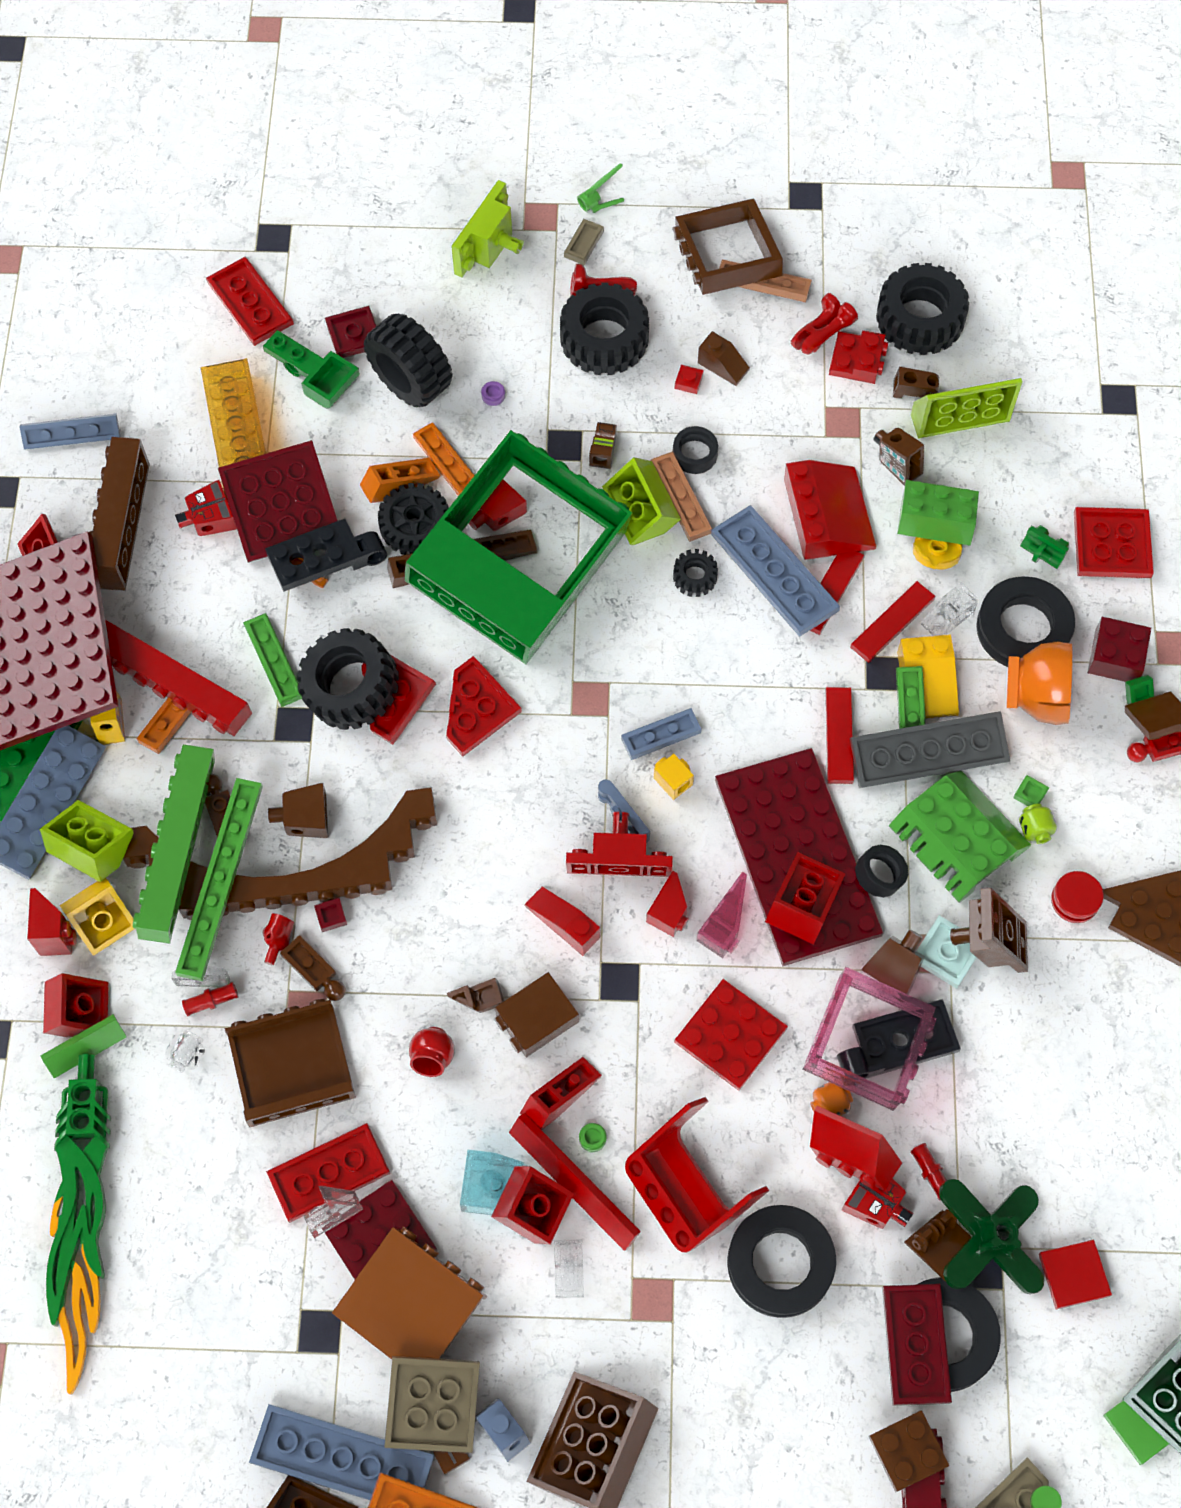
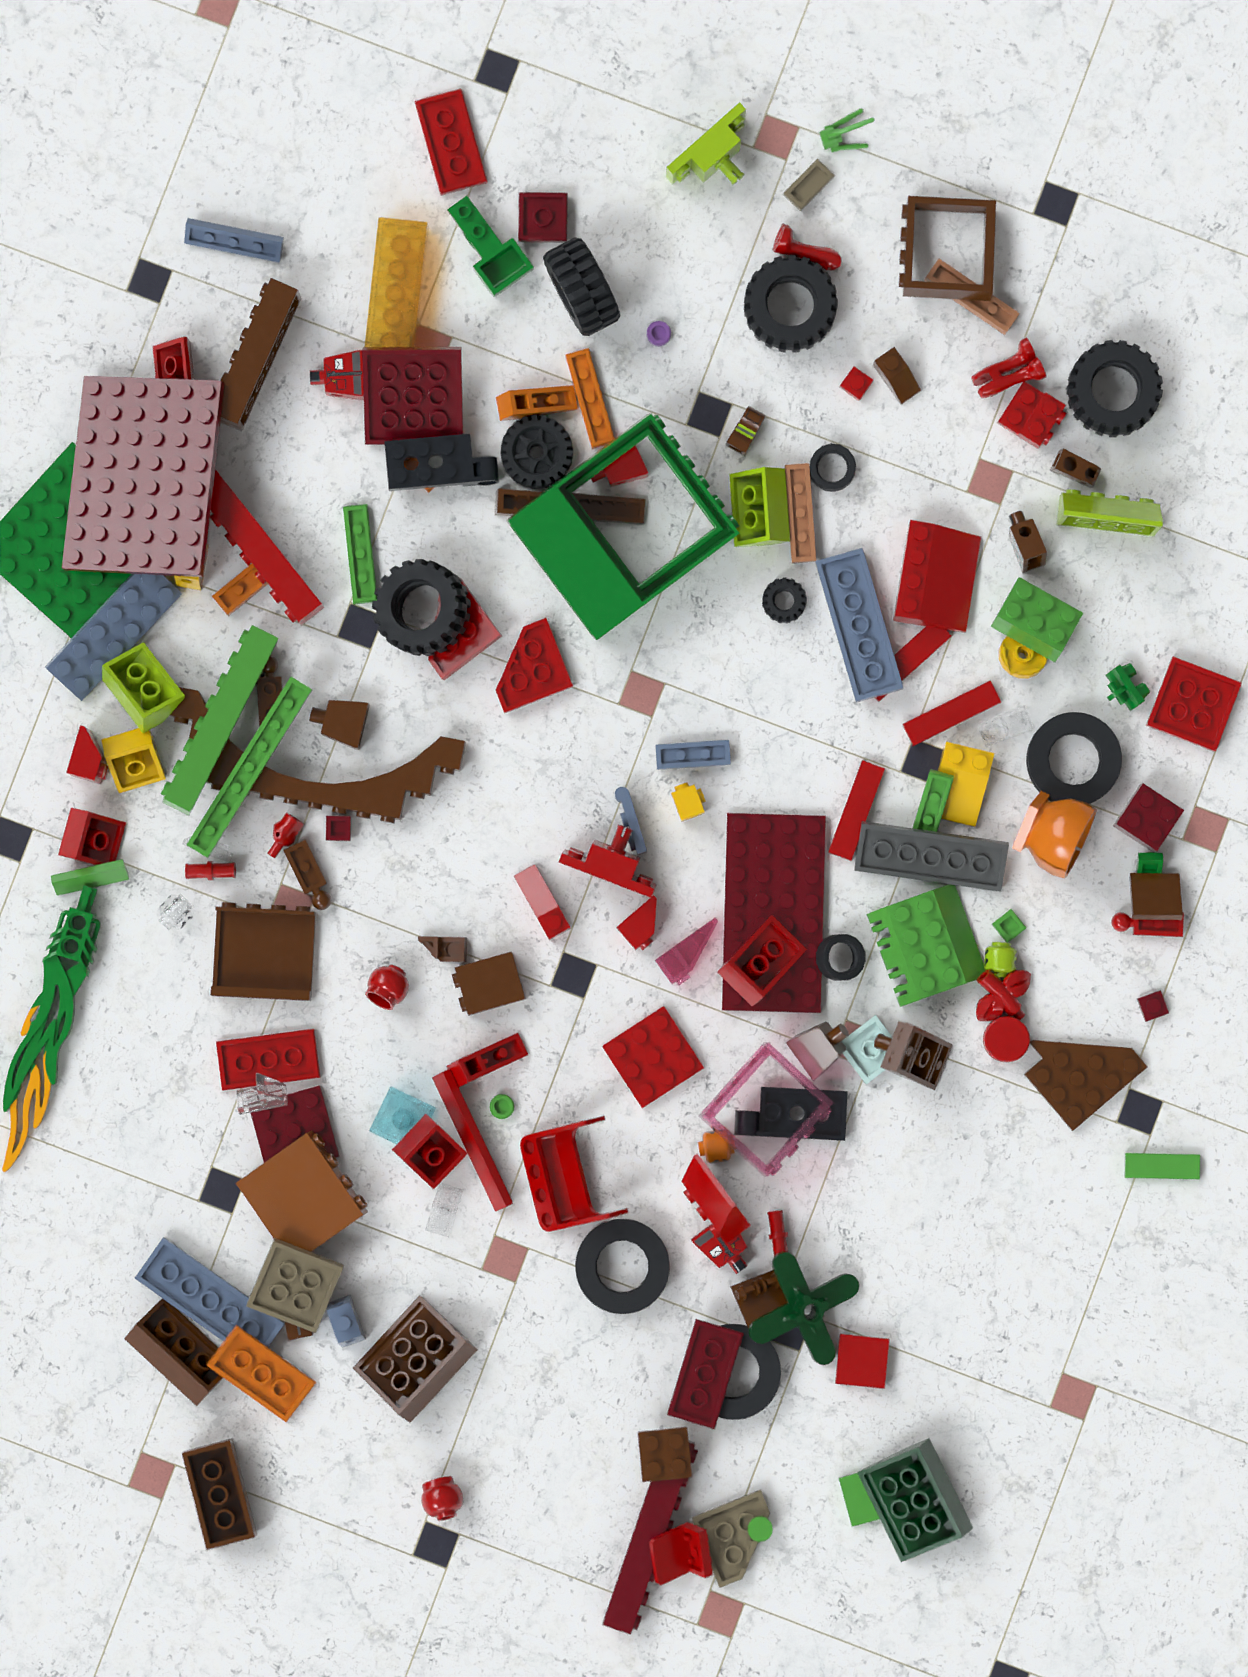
camera: 20 degrees right, 20 degrees up
(1054, 856) = (1002, 995): none -> red plant

